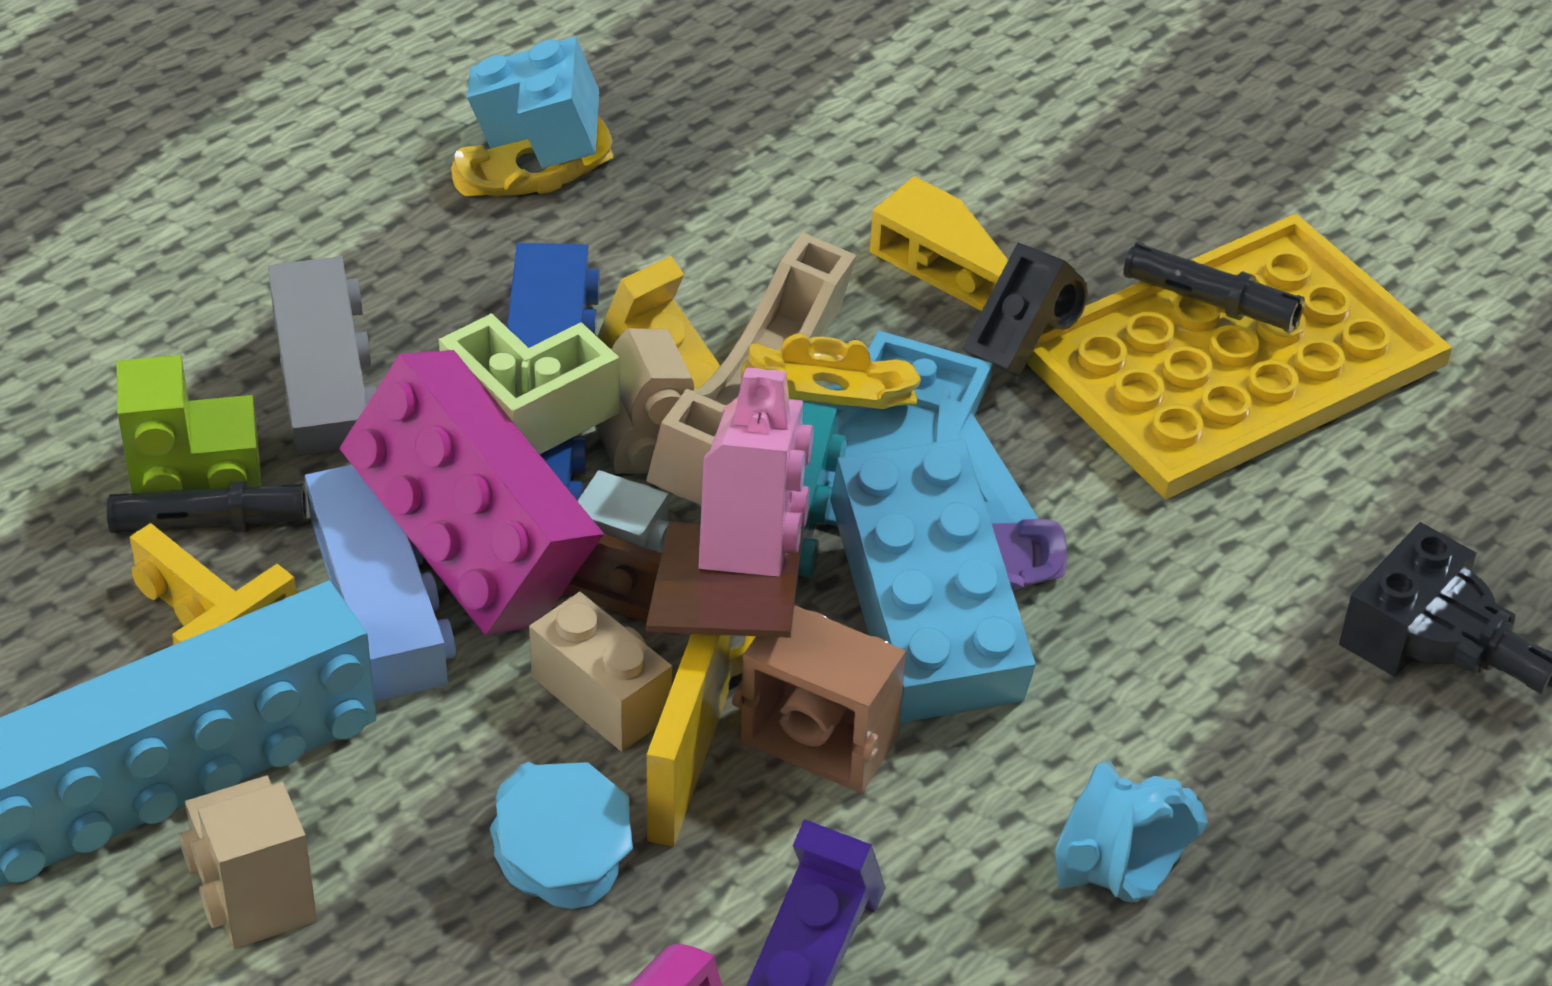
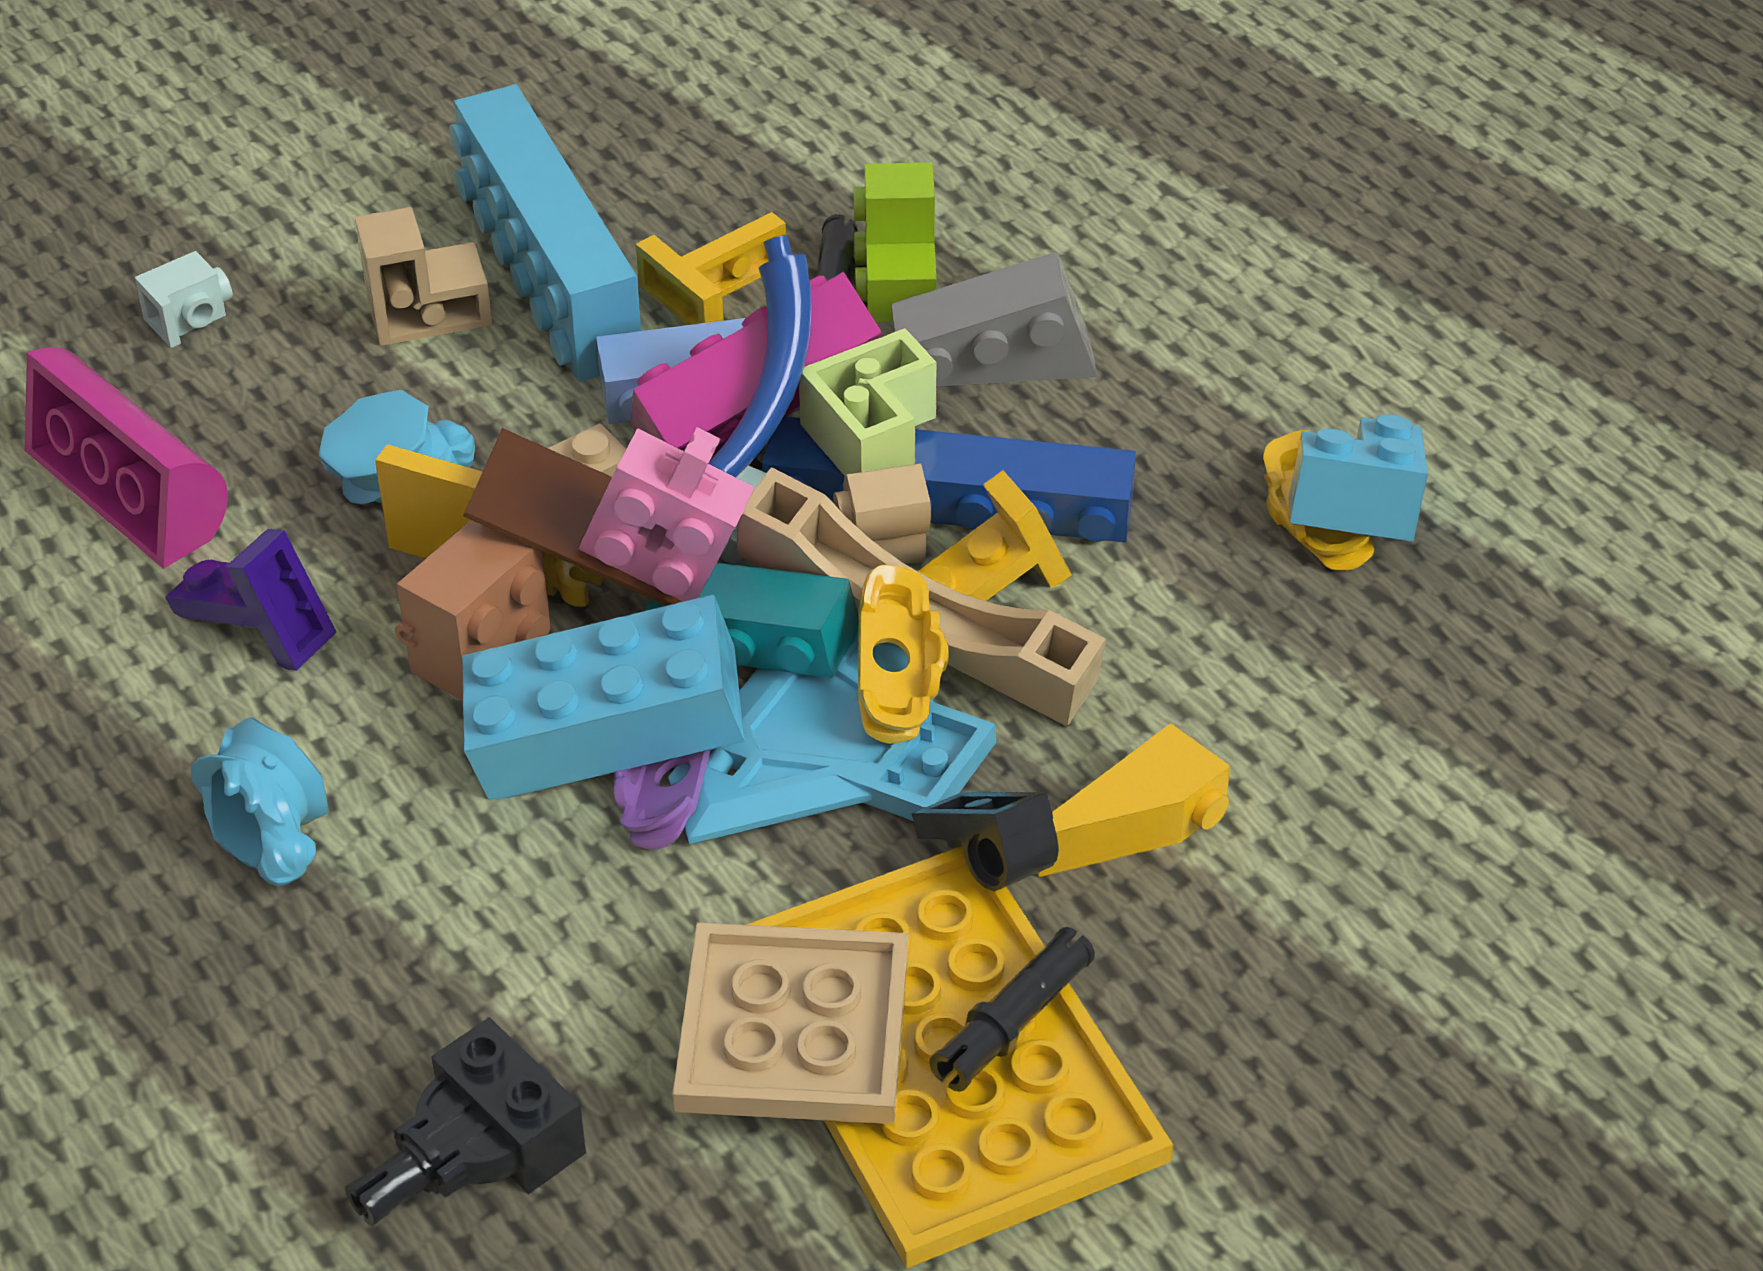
camera: 100 degrees right, 0 degrees up
(476, 394) = (788, 339): none -> blue animal
(1275, 412) = (792, 1023): none -> tan plate

